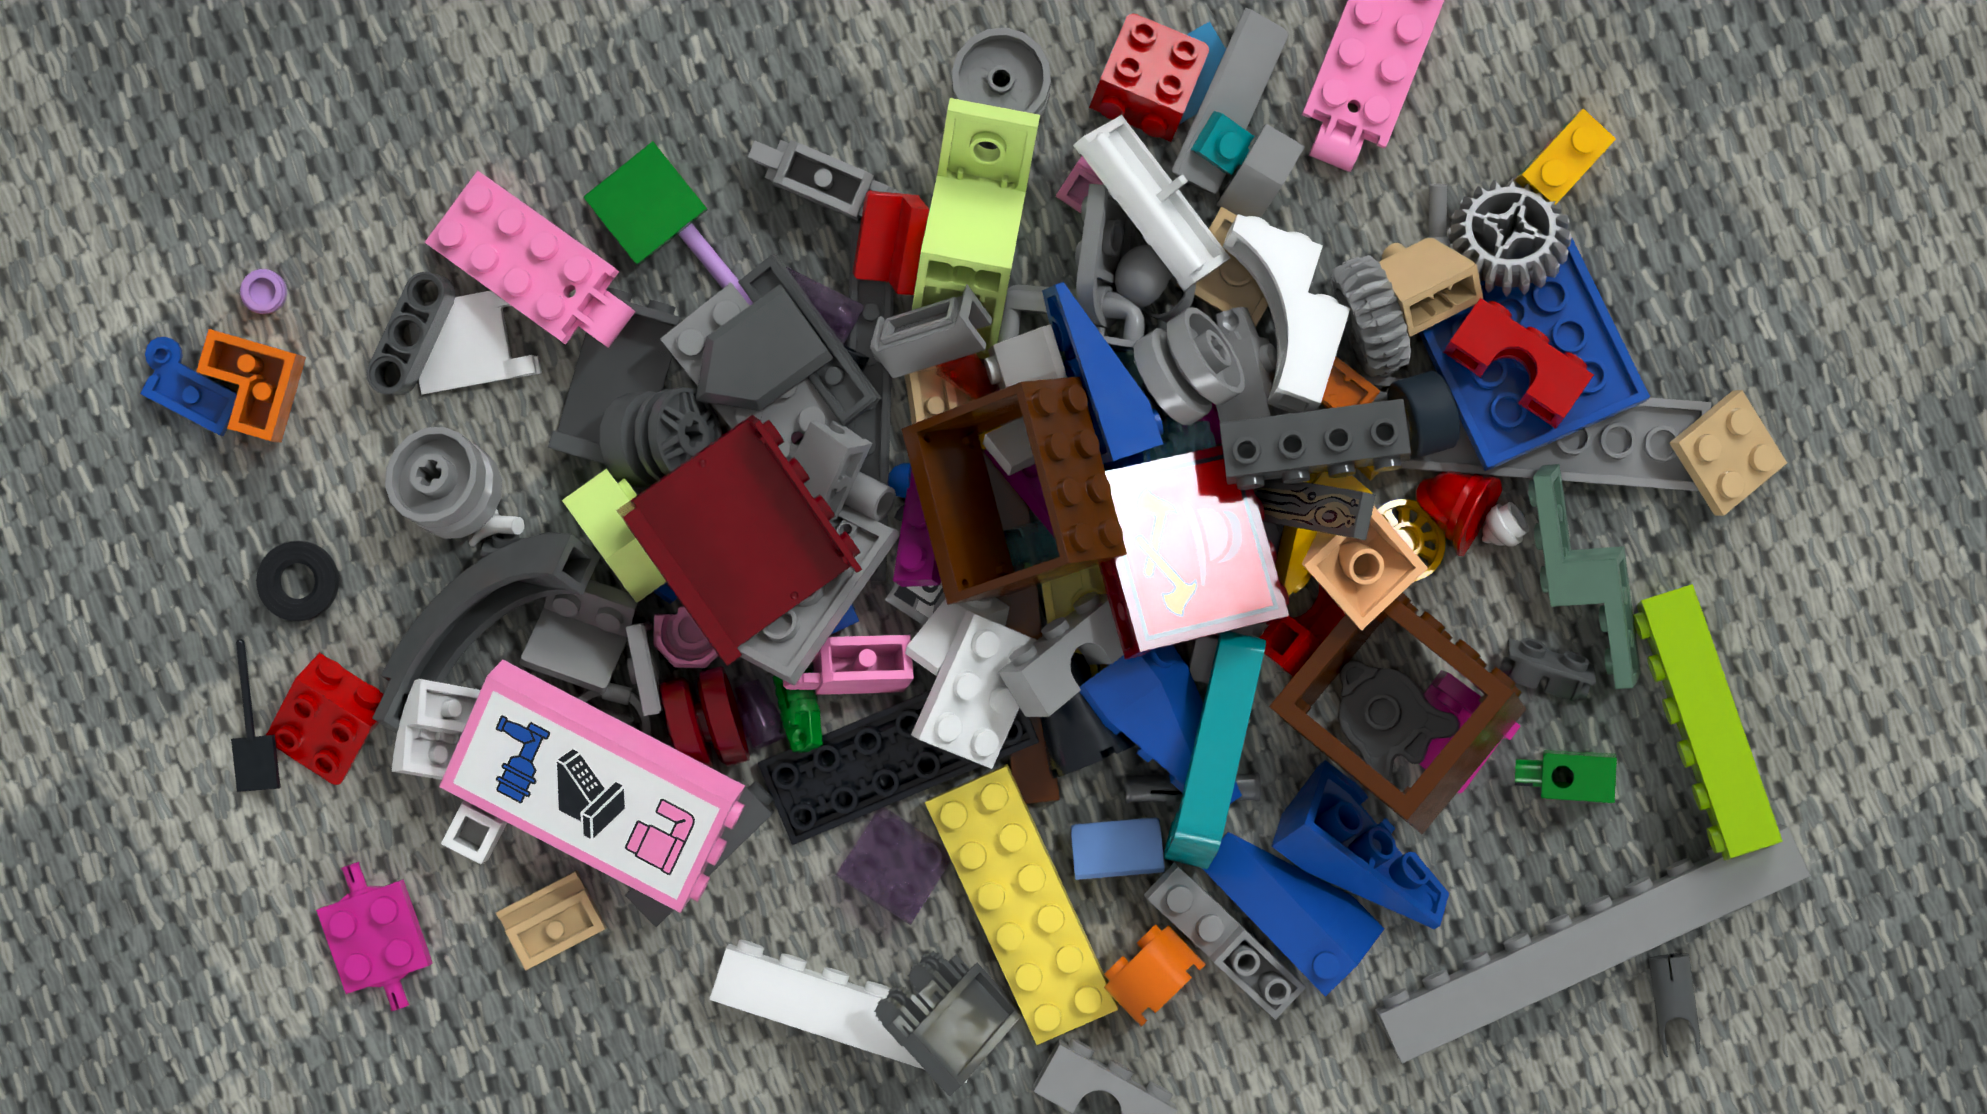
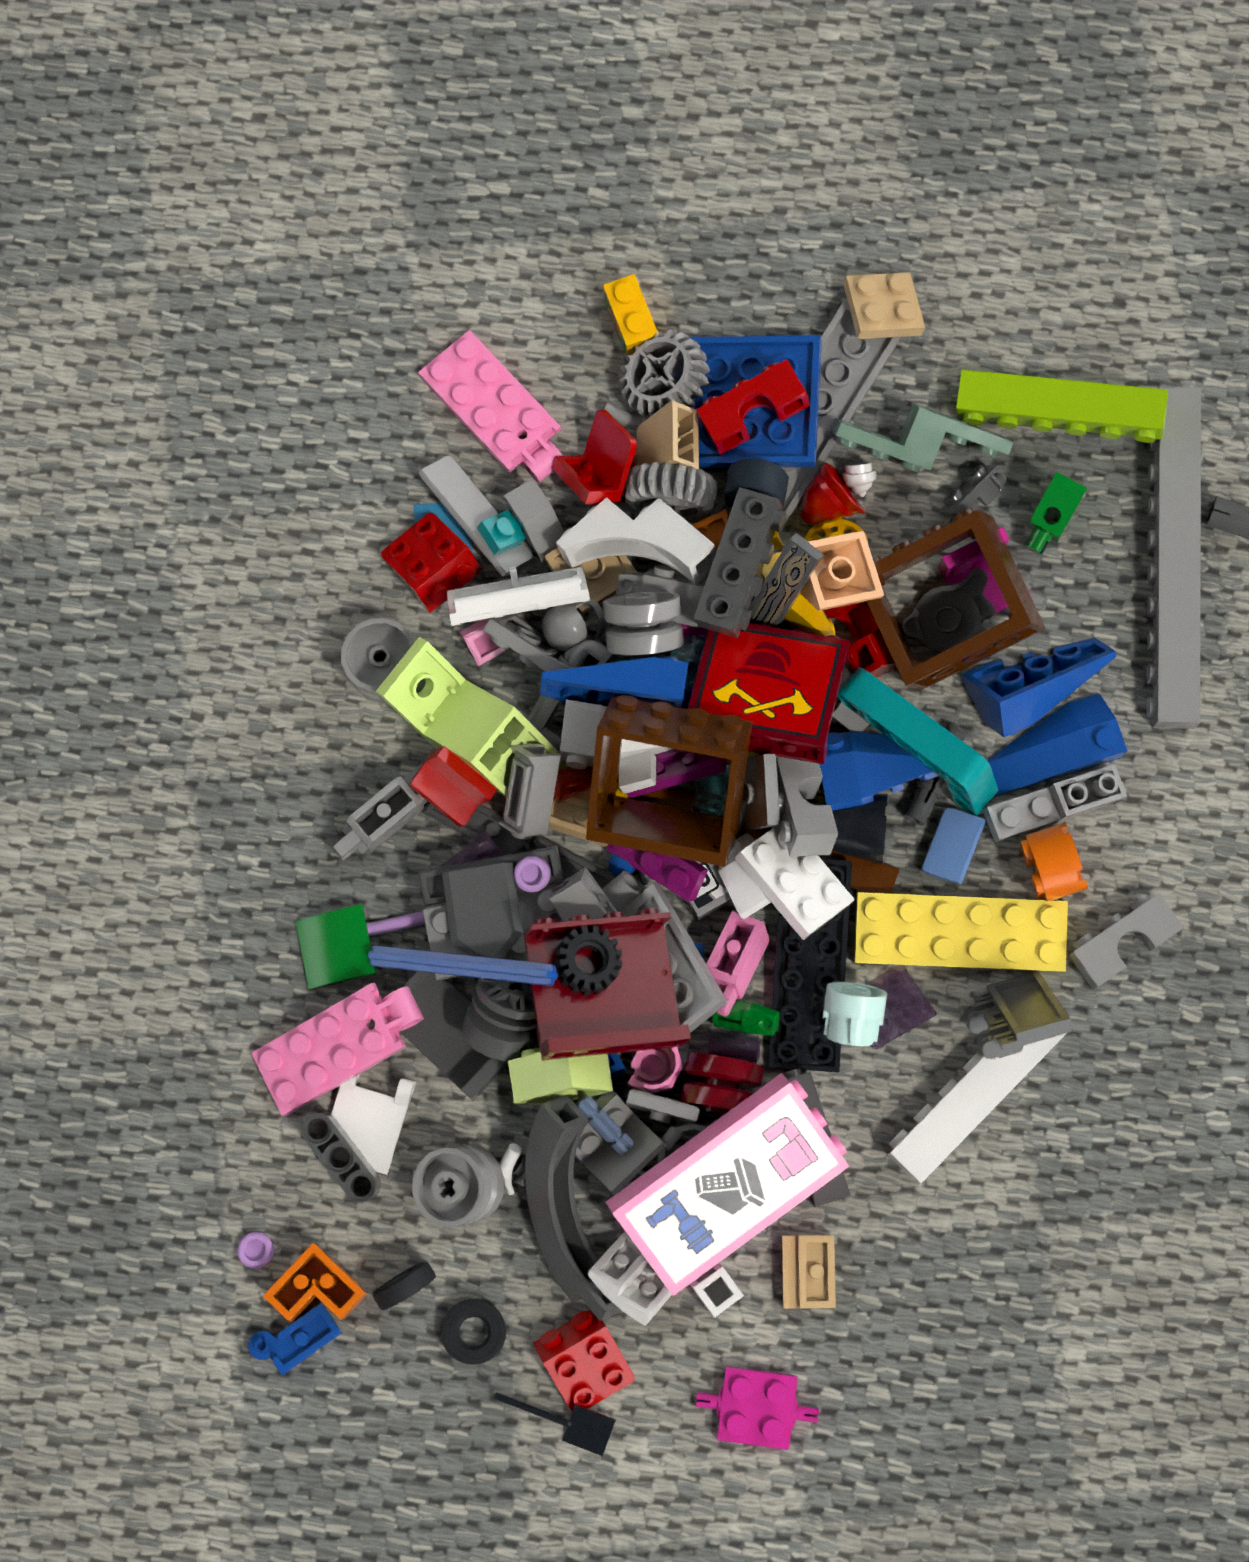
camera: 60 degrees left, 10 degrees down
(304, 479) = (404, 1285): none -> black tyre
(591, 612) = (604, 1125): none -> sand blue axle
(684, 364) = (463, 965): none -> blue axle
(776, 524) = (593, 940): none -> black tyre
(832, 387) = (532, 874): none -> lavender tile
(861, 831) = (853, 1013): none -> light aqua piece
(1056, 602) = (760, 794): none -> light grey plate
(1361, 220) = (604, 464): none -> red bracket

